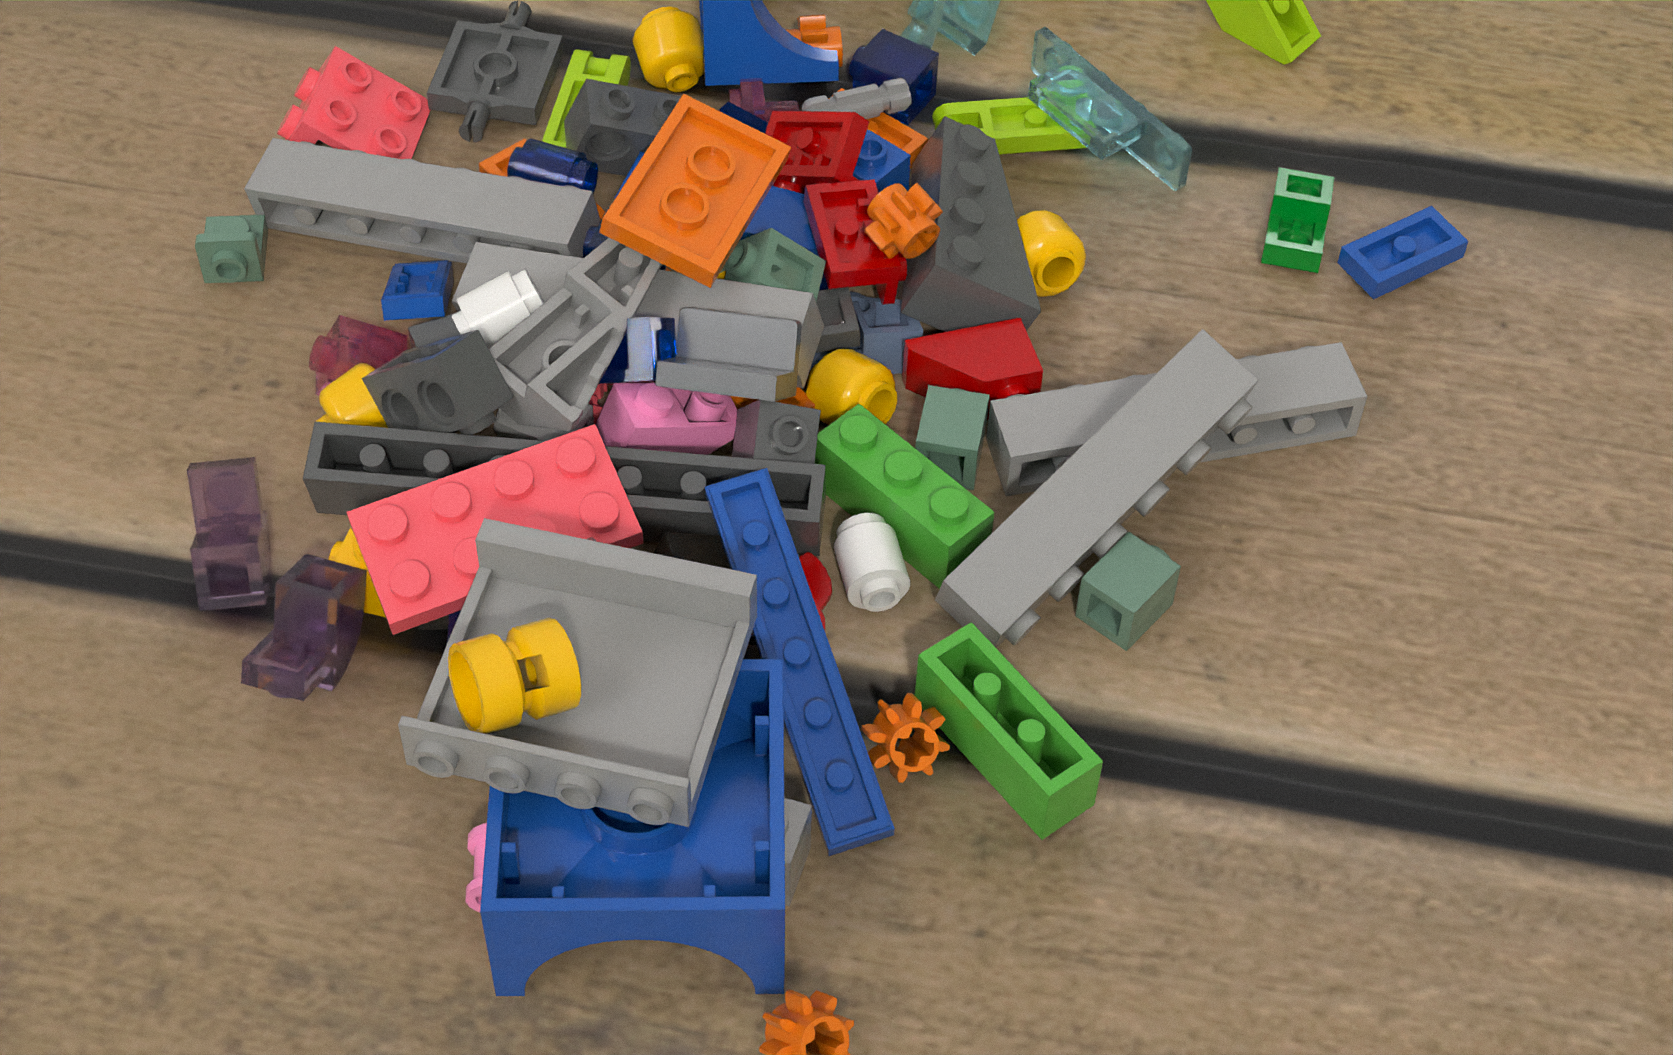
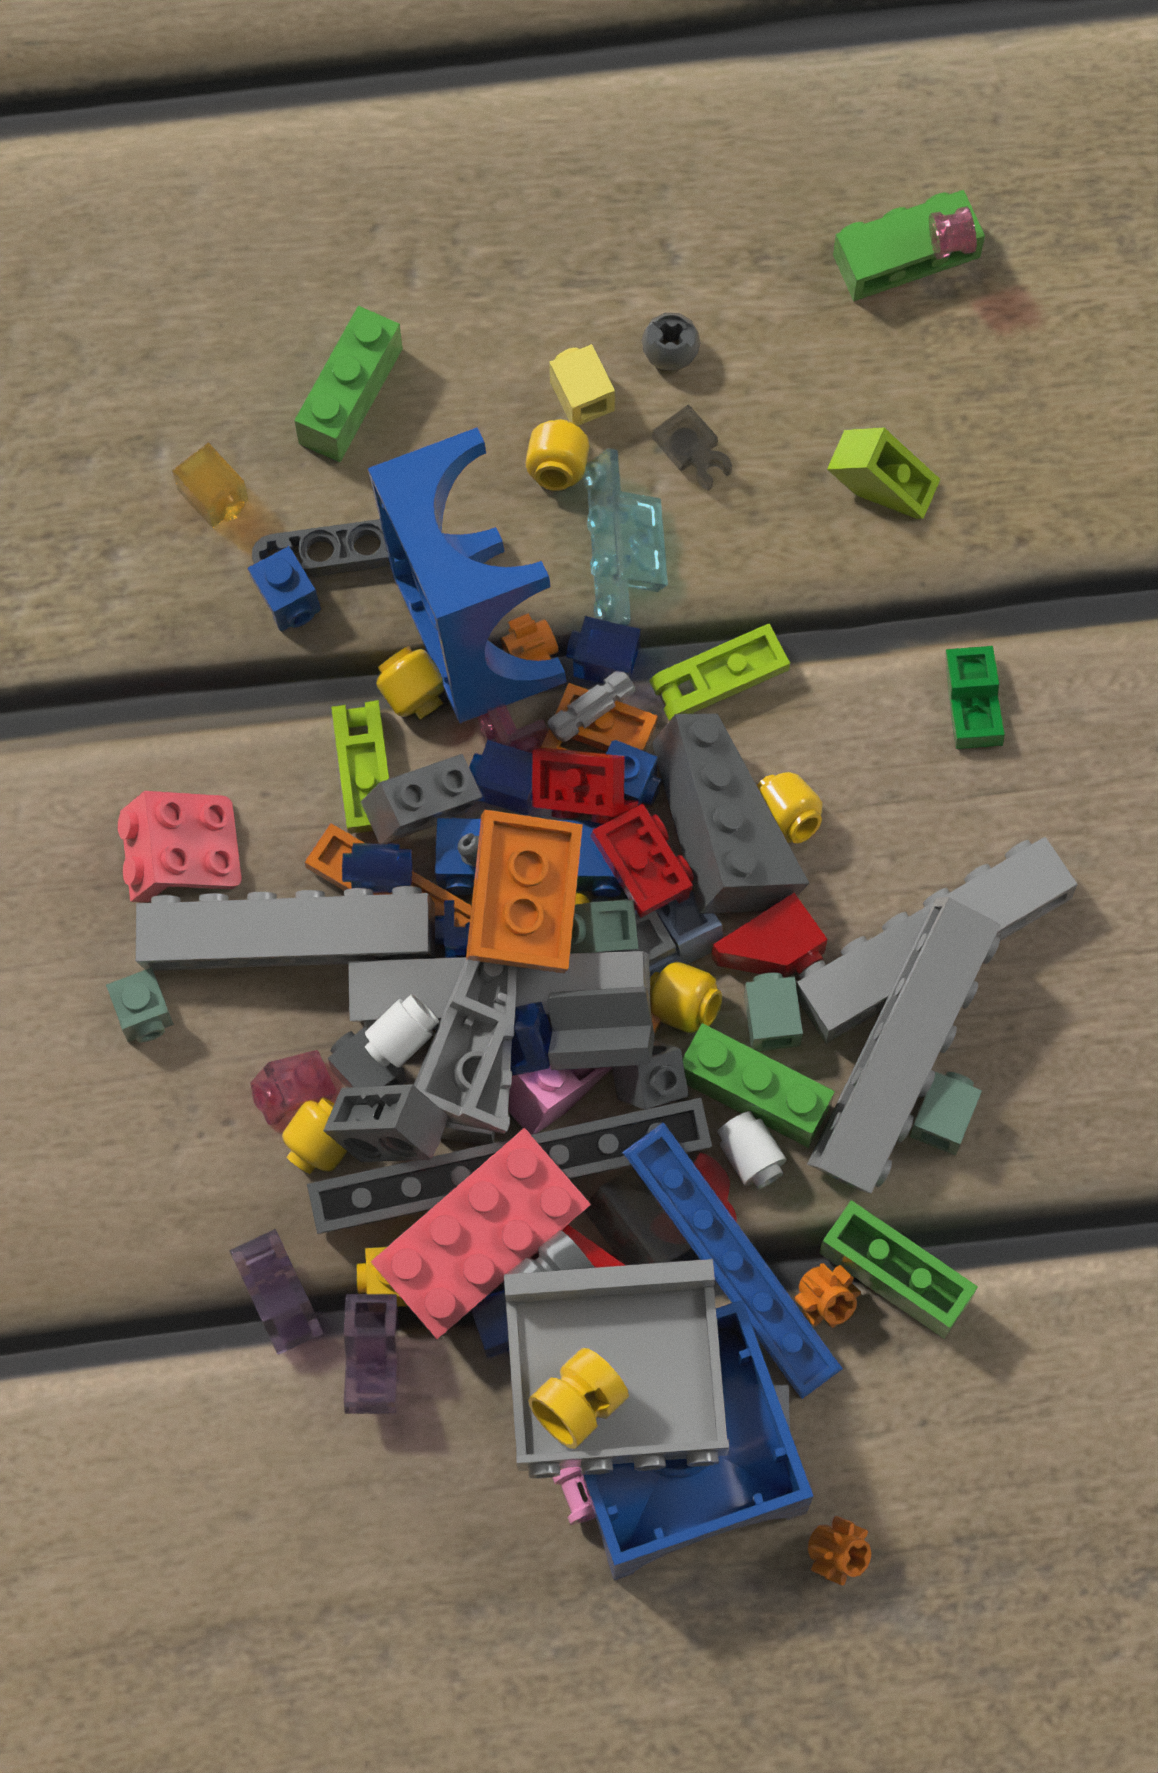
camera: 15 degrees left, 20 degrees up
(418, 290) = (313, 1011): blue plate -> none
(495, 72) = (273, 752): dark grey plate -> none
(903, 221) = (687, 855): orange gear -> none
(1102, 112) = (781, 642): clear light blue bracket -> none
(1402, 252) = (1065, 709): blue plate -> none

